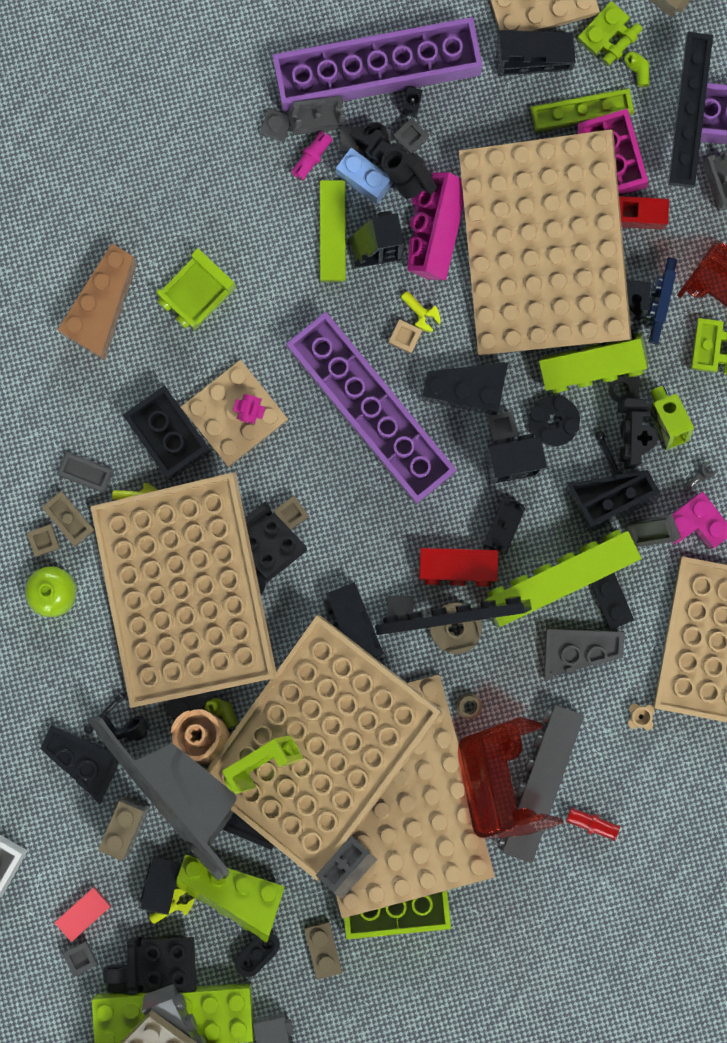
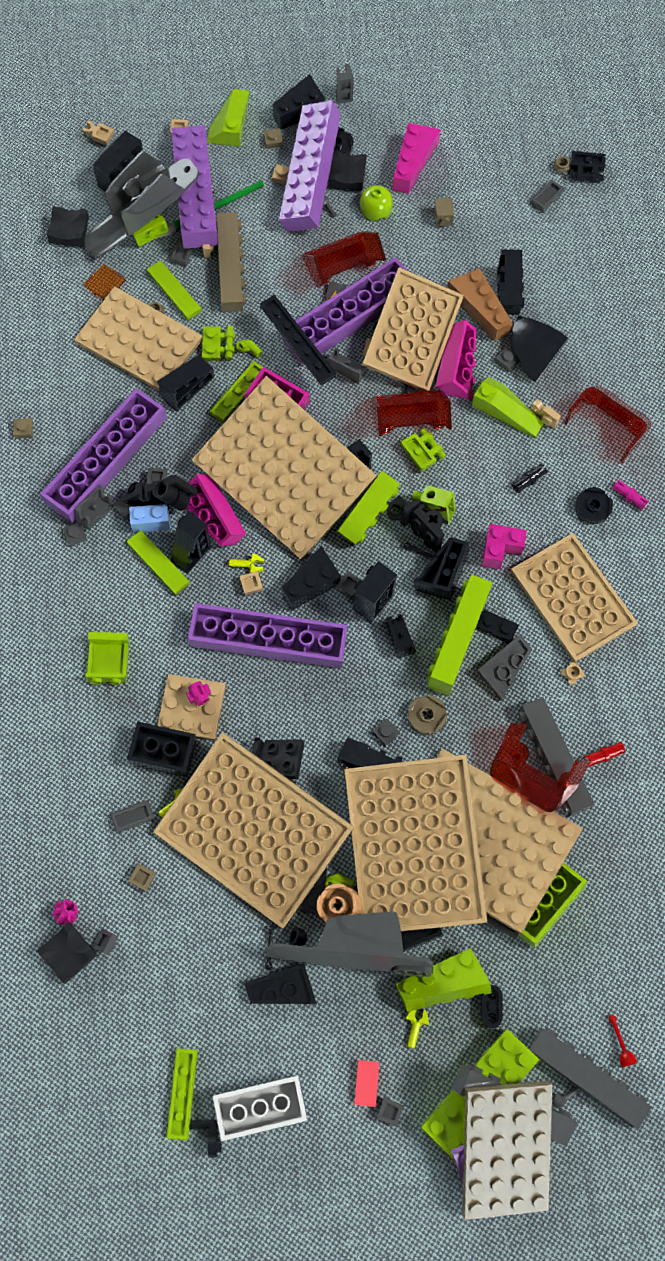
camera: 45 degrees left, 15 degrees down
(50, 591) = (173, 904): lime cylinder -> none
(68, 518) = (146, 851): dark tan plate -> none
(98, 306) = (57, 714): medium nougat wedge -> none
(124, 828) = (345, 1000): dark tan brick -> none
(154, 965) = (438, 1072): black plate -> none
(159, 885) = (397, 1019): black hinge -> none
(281, 749) = (392, 861): lime panel -> none
(291, 513) = (275, 731): dark tan plate -> none
(311, 155) = (109, 532): dark pink pin -> none
(323, 950) = (527, 969): dark tan plate -> none
(346, 867) = (496, 897): dark grey hinge -> none
(412, 102) = (141, 460): black piece -> none
(458, 566) = (396, 679): red brick -> none
(463, 613) = (425, 695): black plate -> none
(469, 714) = (478, 746): dark tan plate -> none
(560, 407) = (370, 549): black plate -> none
(644, 212) = (324, 411): red brick -> none
(653, 530) = (484, 564): dark grey tile -> none
(661, 292) = (373, 444): dark blue plate -> none
(699, 477) = (480, 519): dark grey hand -> none

